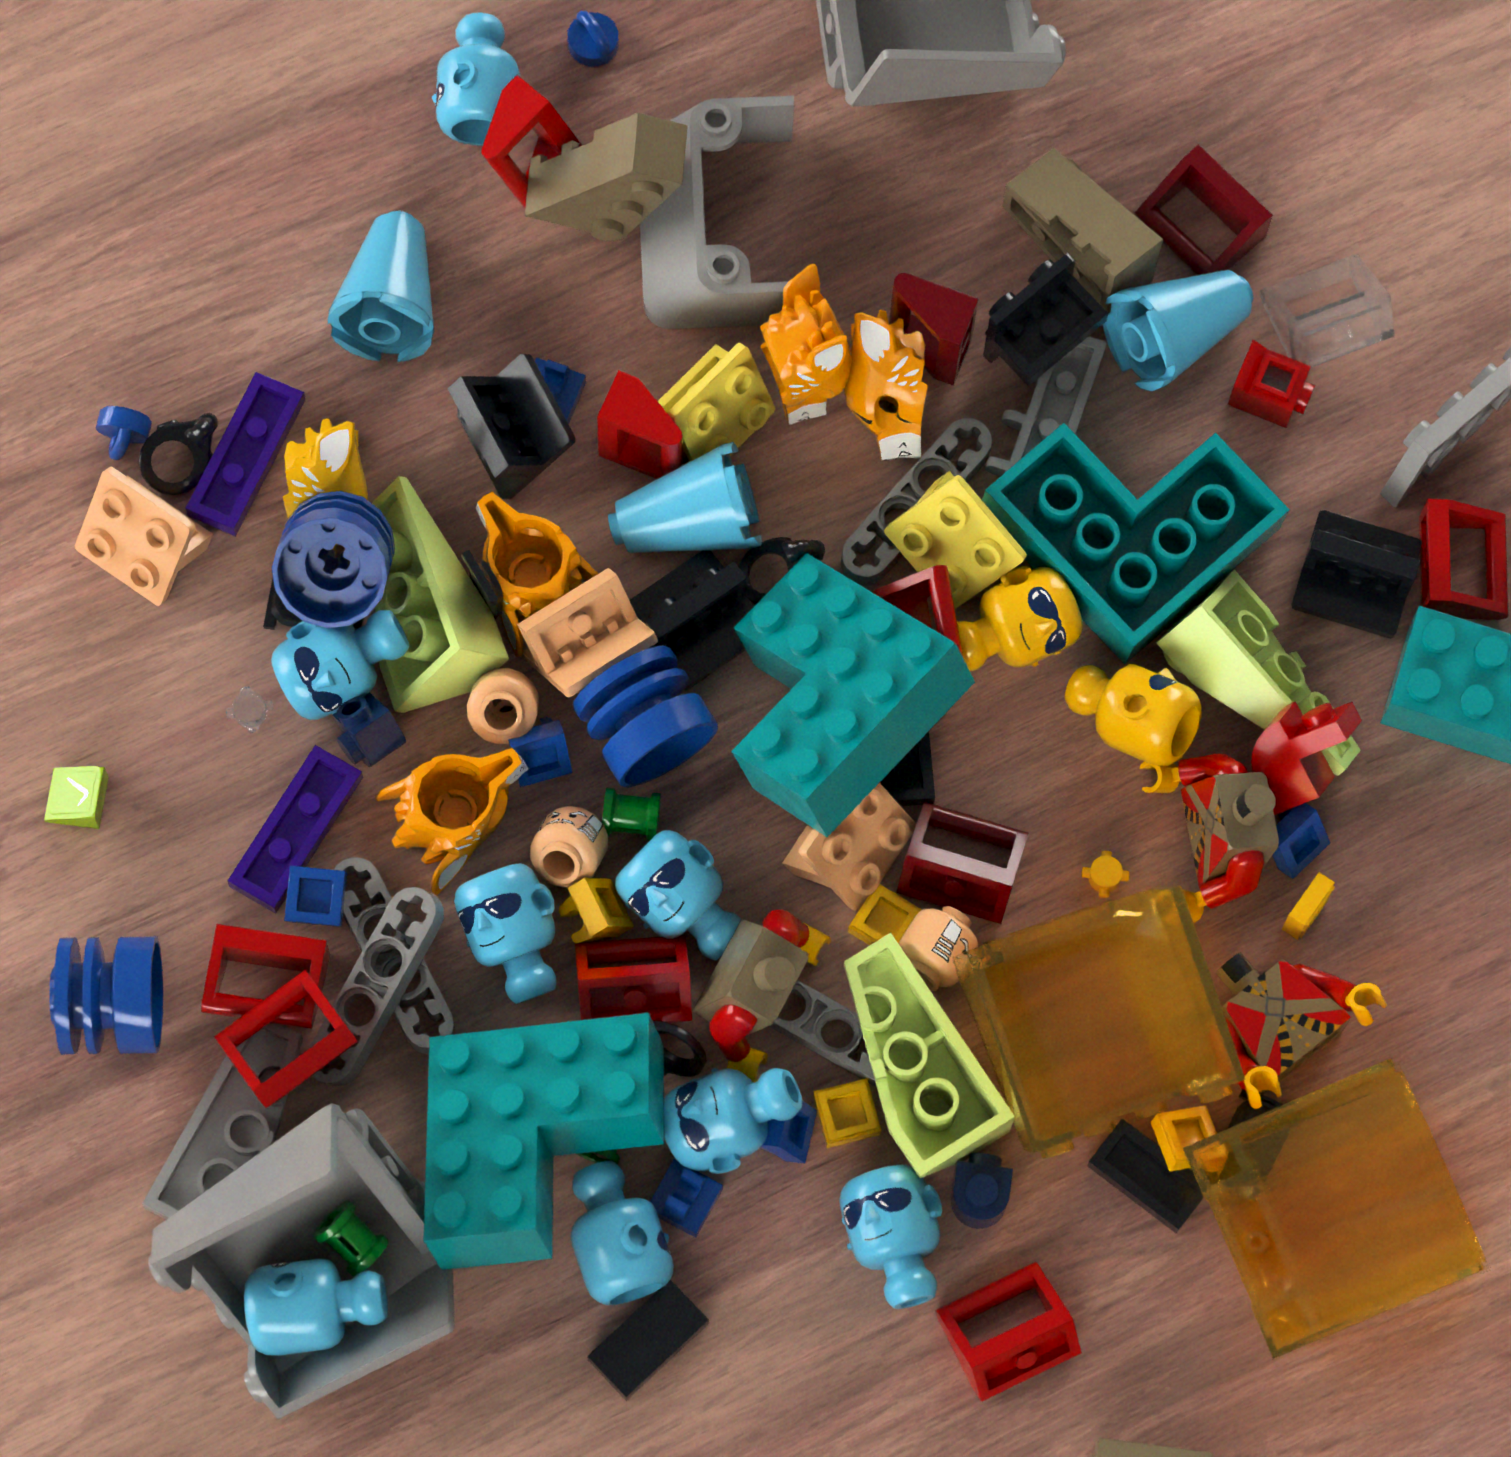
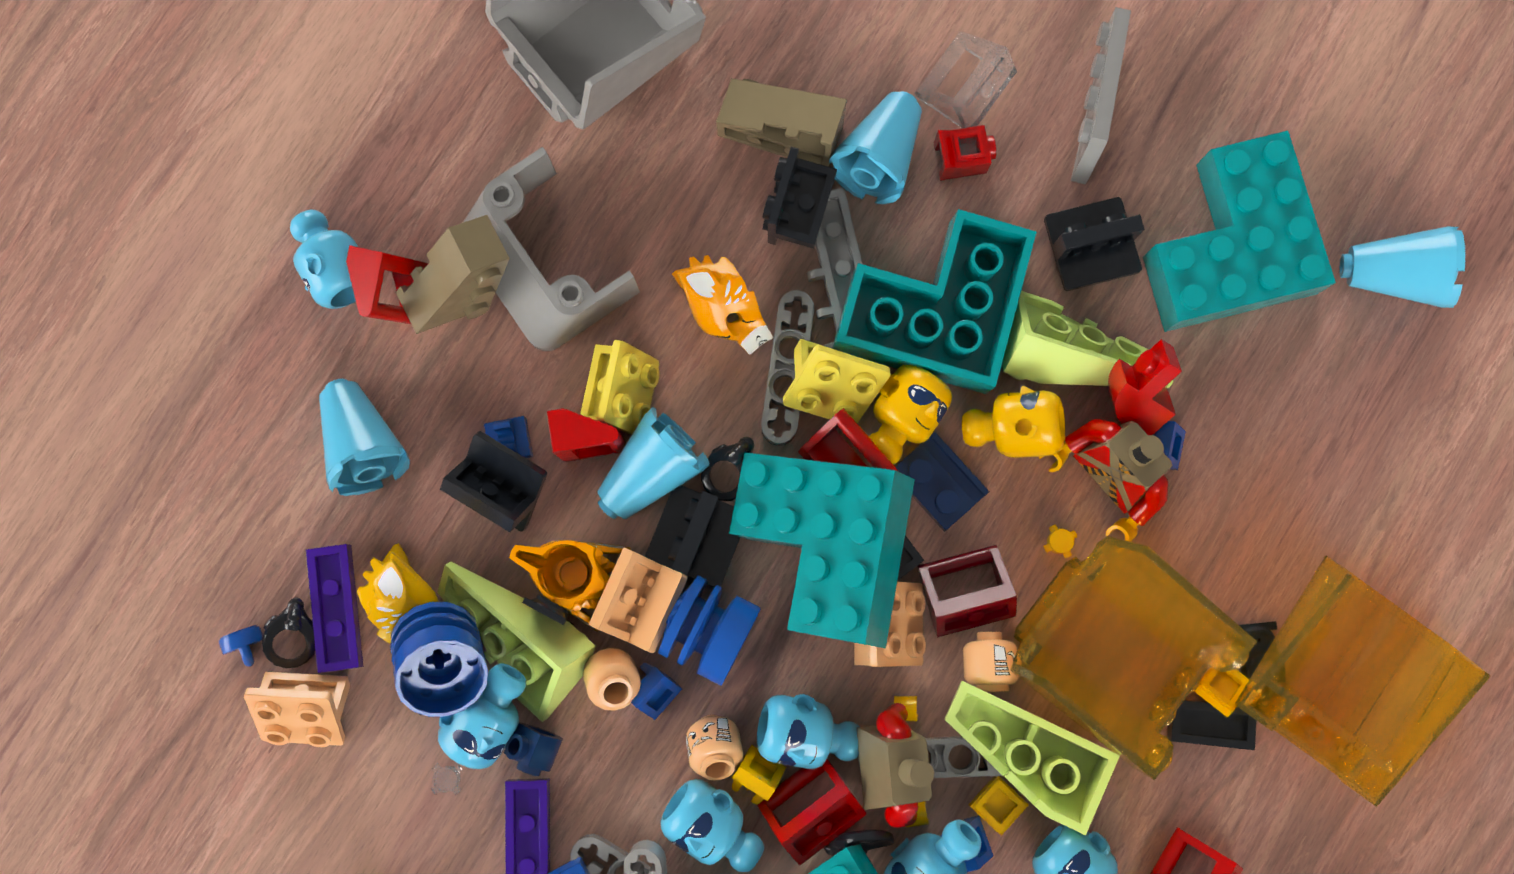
camera: 25 degrees left, 10 degrees up
(452, 807) = (622, 768): light orange piece -> none
(593, 39) = (385, 183): blue tile -> none
(631, 813) = (738, 695): green bush -> none
(806, 349) = (657, 313): light orange piece -> none
(882, 914) = (943, 661): yellow tile -> none
(941, 316) = (729, 238): dark red tile -> none
(980, 1190) = (1120, 806): dark blue plate -> none
(1009, 727) = (941, 481): none -> dark blue plate
(1222, 196) = (857, 45): dark red tile -> none
(1286, 1017) = (1237, 569): torso -> none
(1309, 906) = (1203, 484): yellow tile -> none
(1435, 565) = (1136, 199): red tile -> none

